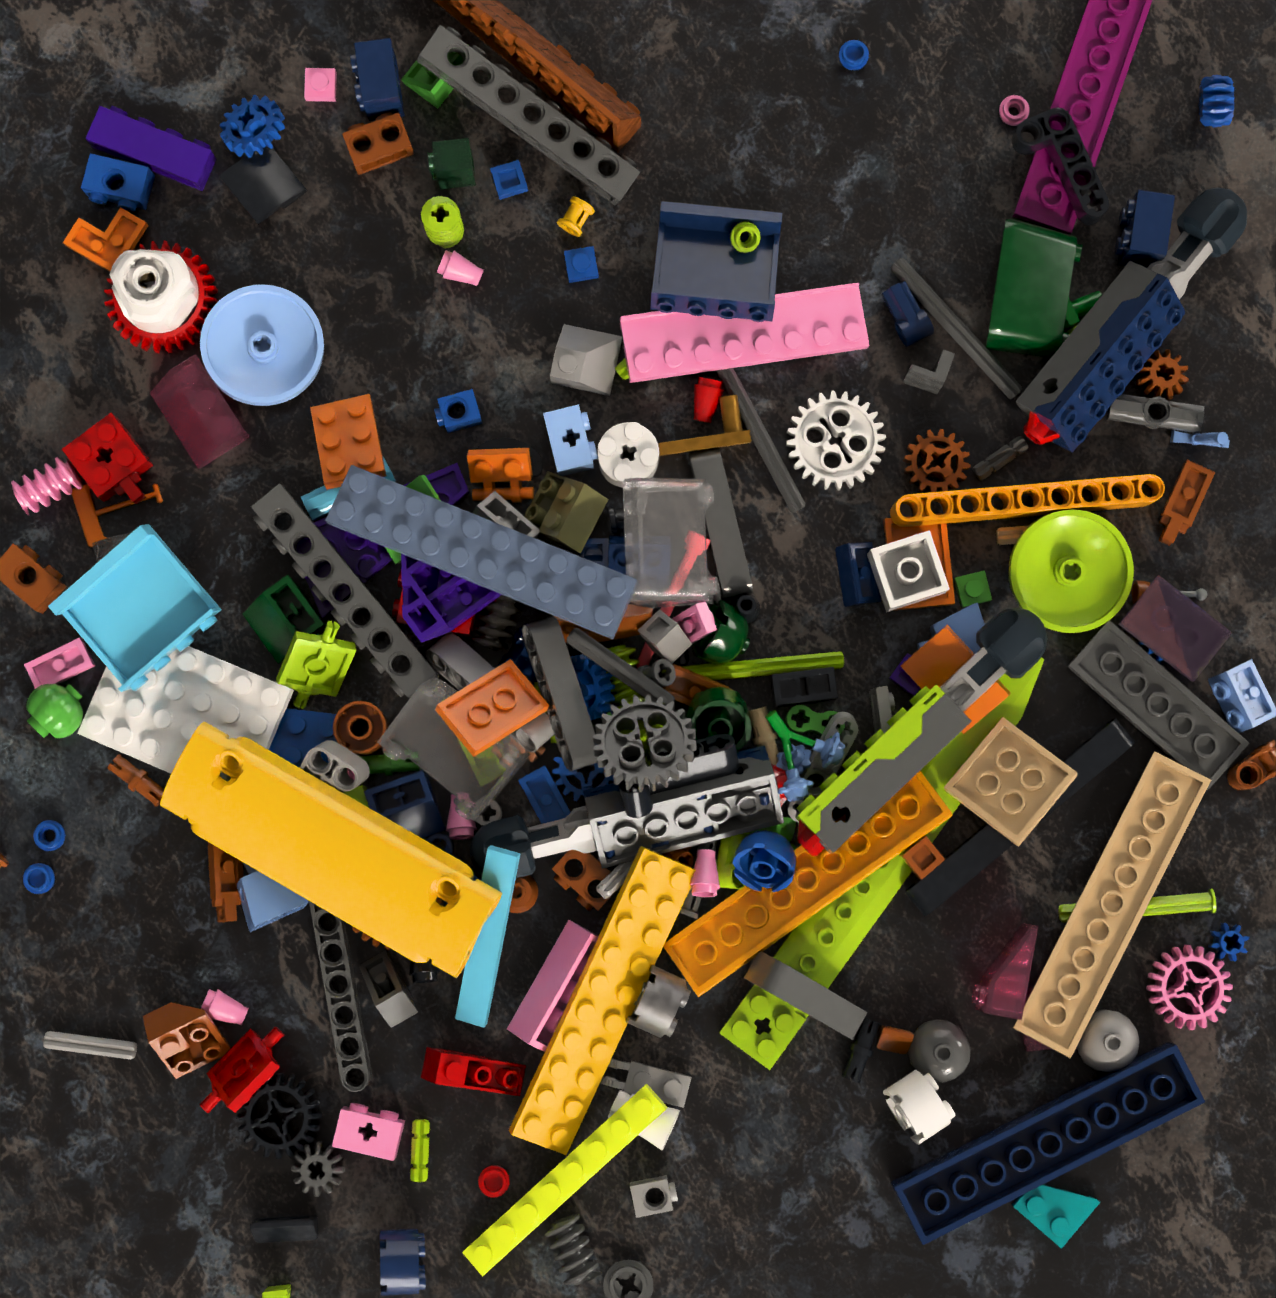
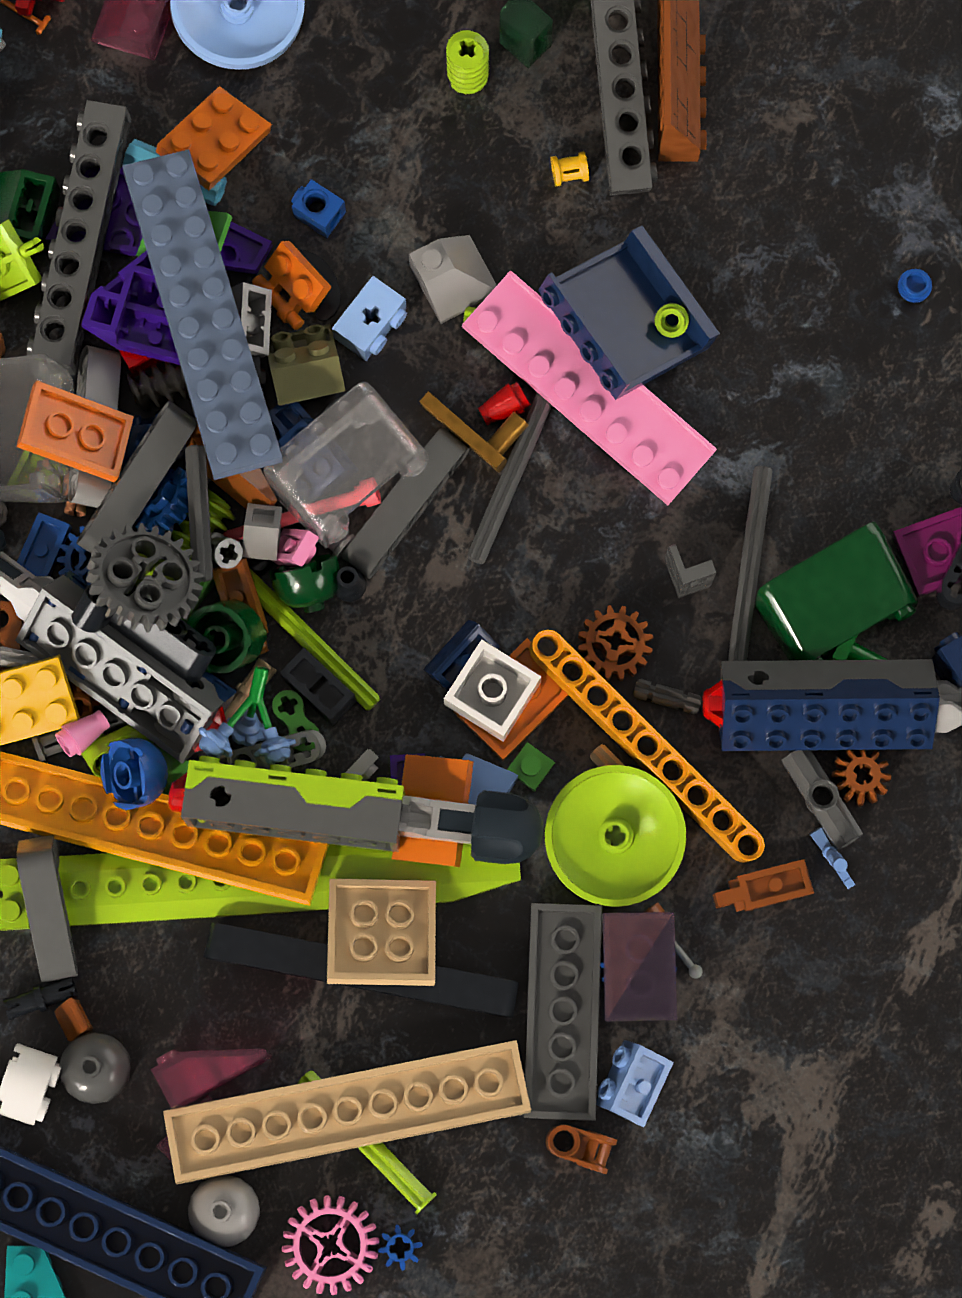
camera: 50 degrees right, 5 degrees down
(458, 268) = (441, 108): bright pink cone -> none
(509, 179) = (554, 89): blue plate -> none
(581, 264) = (533, 207): blue plate -> none
(633, 438) = (396, 358): white brick -> none
(859, 426) = (531, 533): white gear -> none
(910, 321) = (722, 519): dark blue piece -> none
(922, 857) = (252, 910): dark orange plate -> none

